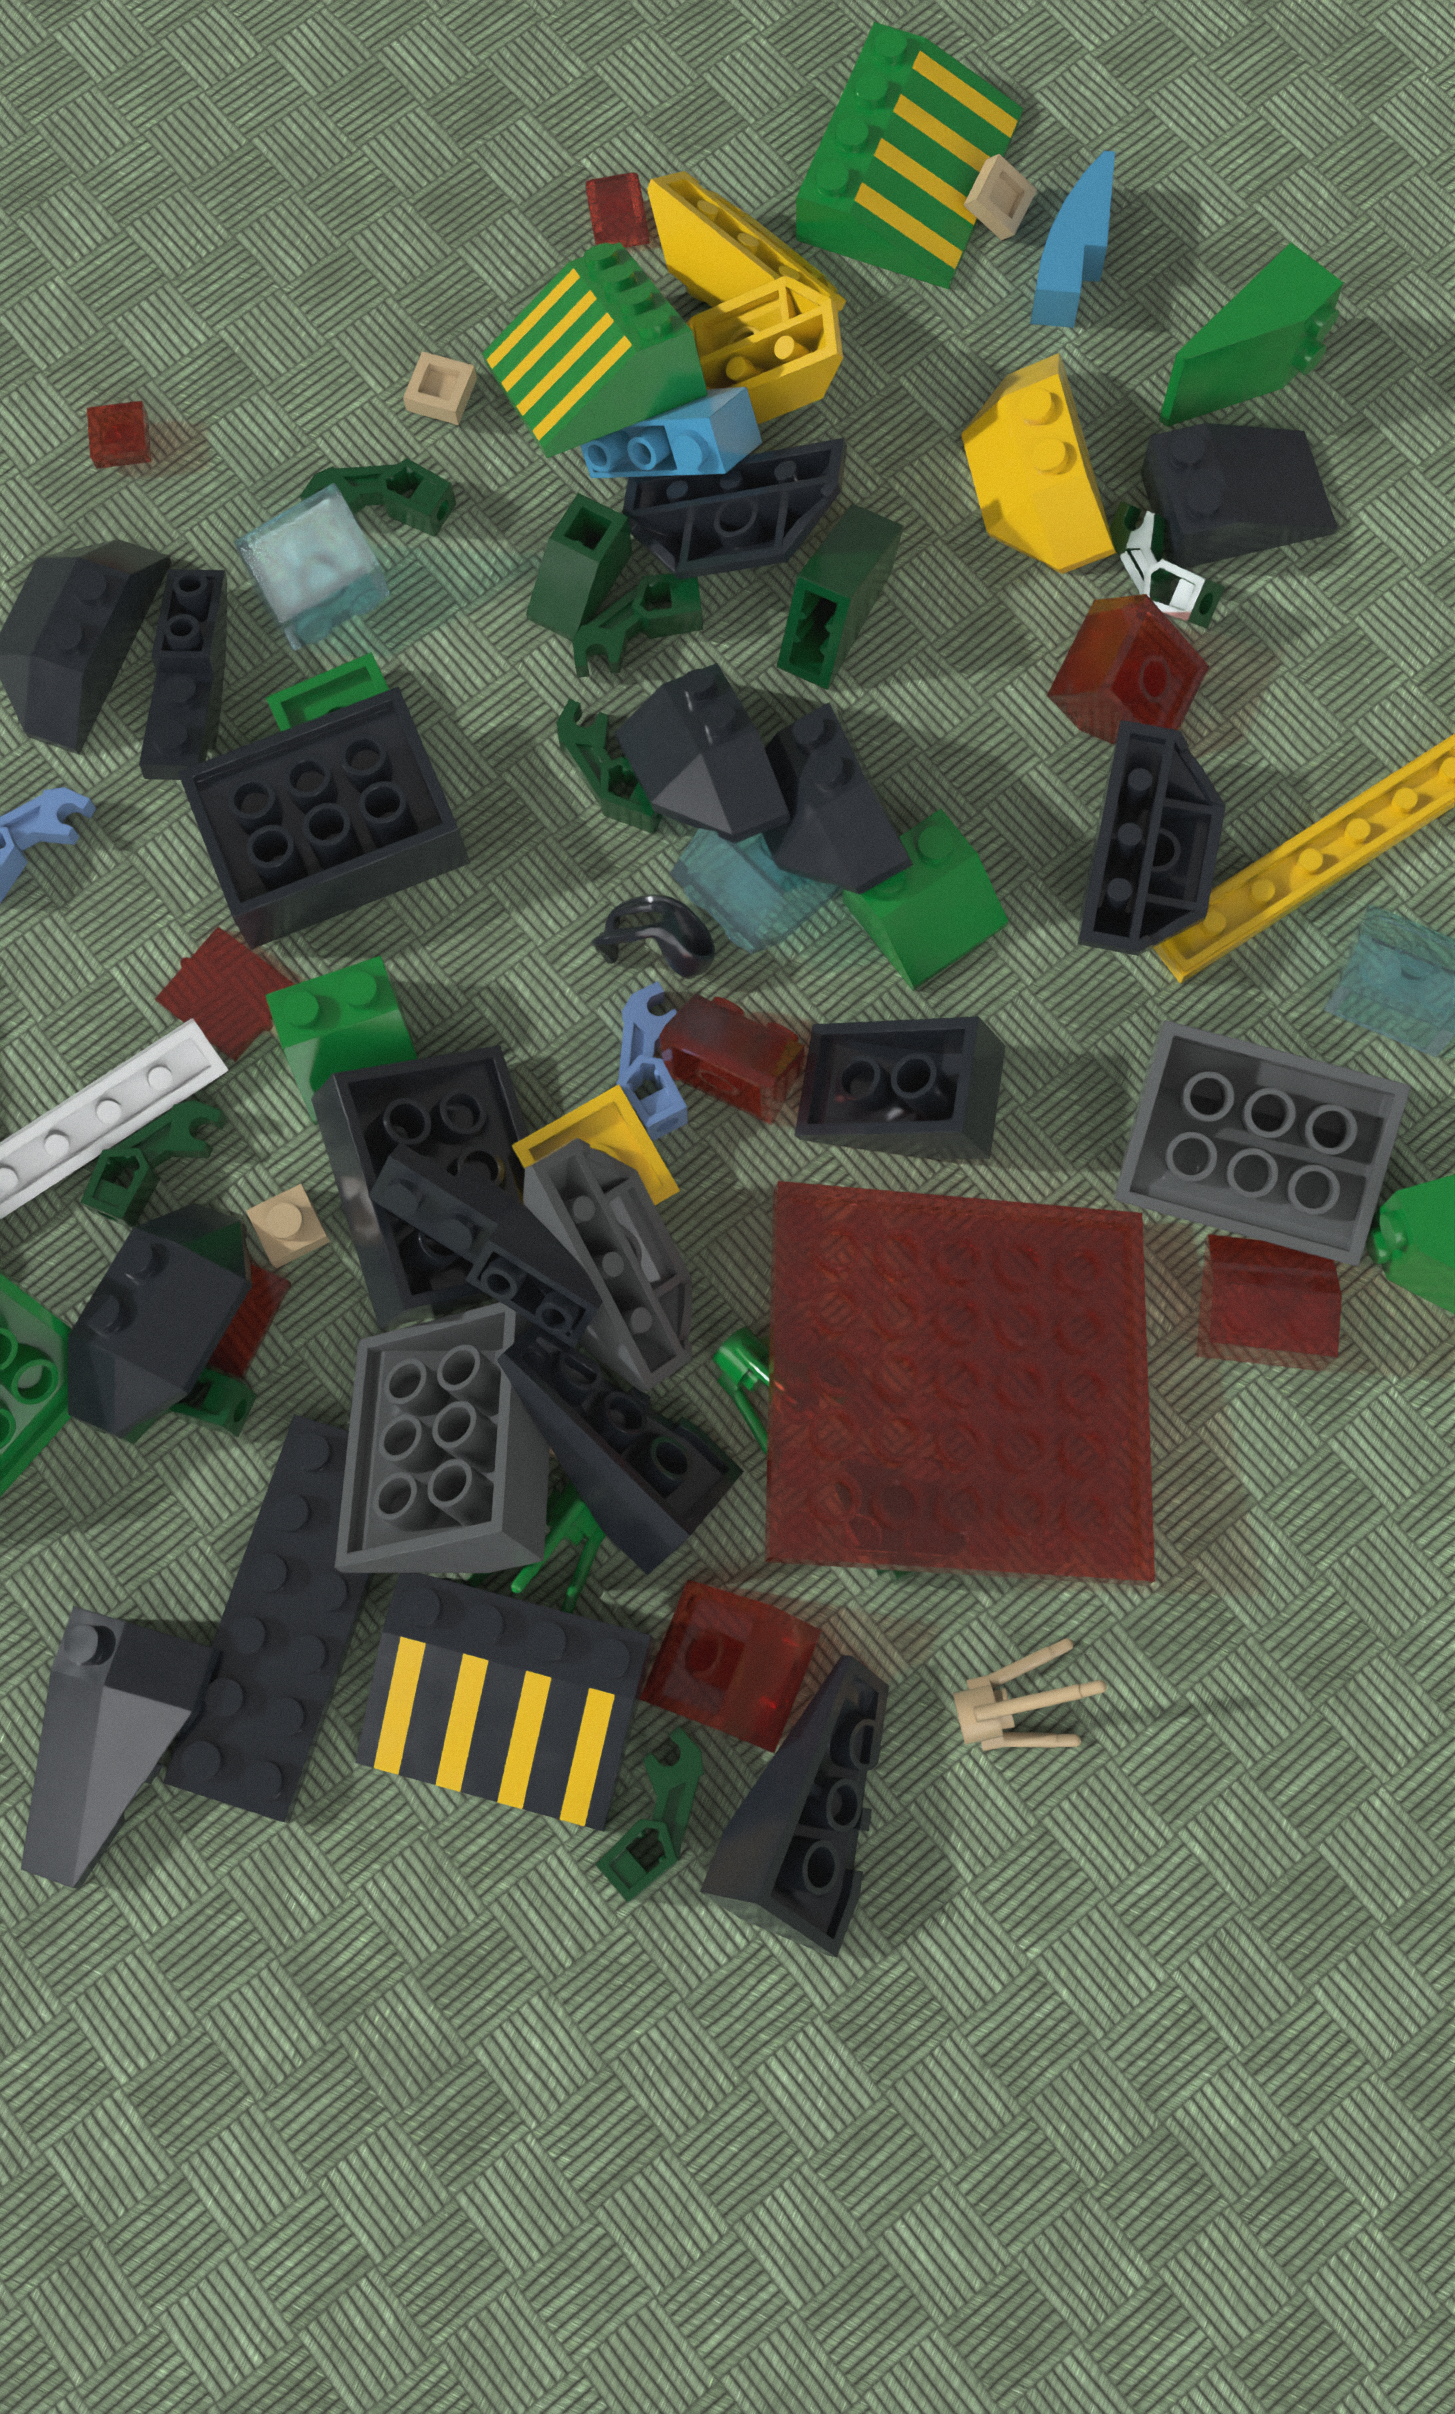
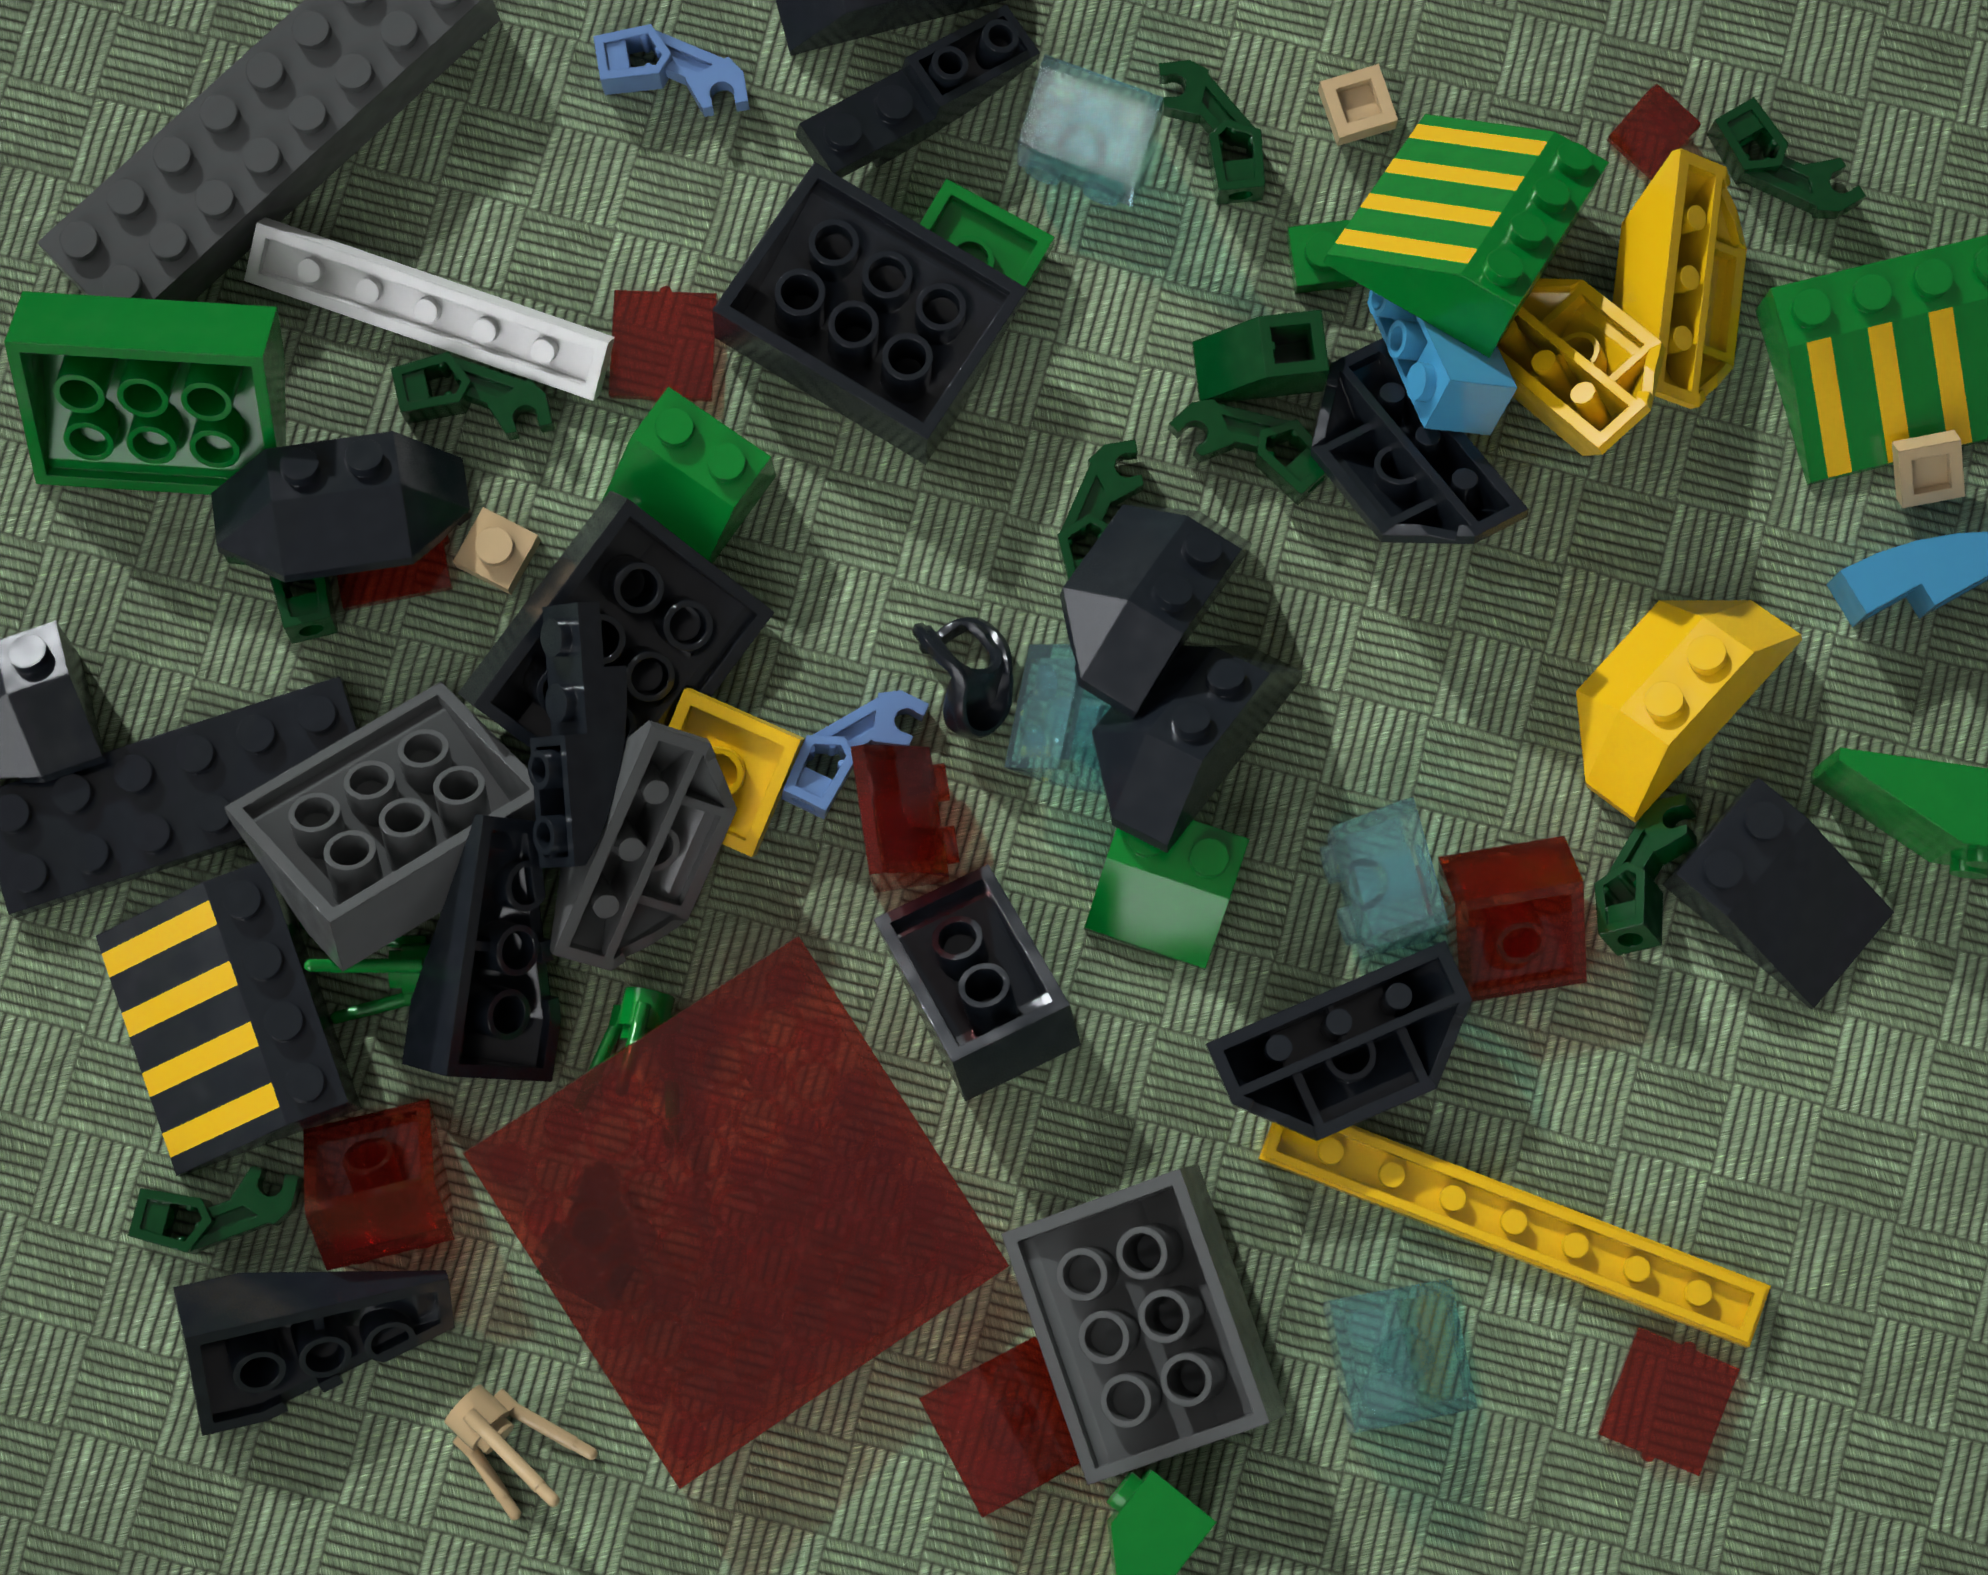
camera: 50 degrees right, 5 degrees up
(532, 488) = (1307, 251): none -> green plate
(705, 159) = (1777, 175): none -> dark green piece
(837, 594) = (1407, 603): dark green slope -> none
(1040, 736) = (1384, 880): none -> clear light blue slope

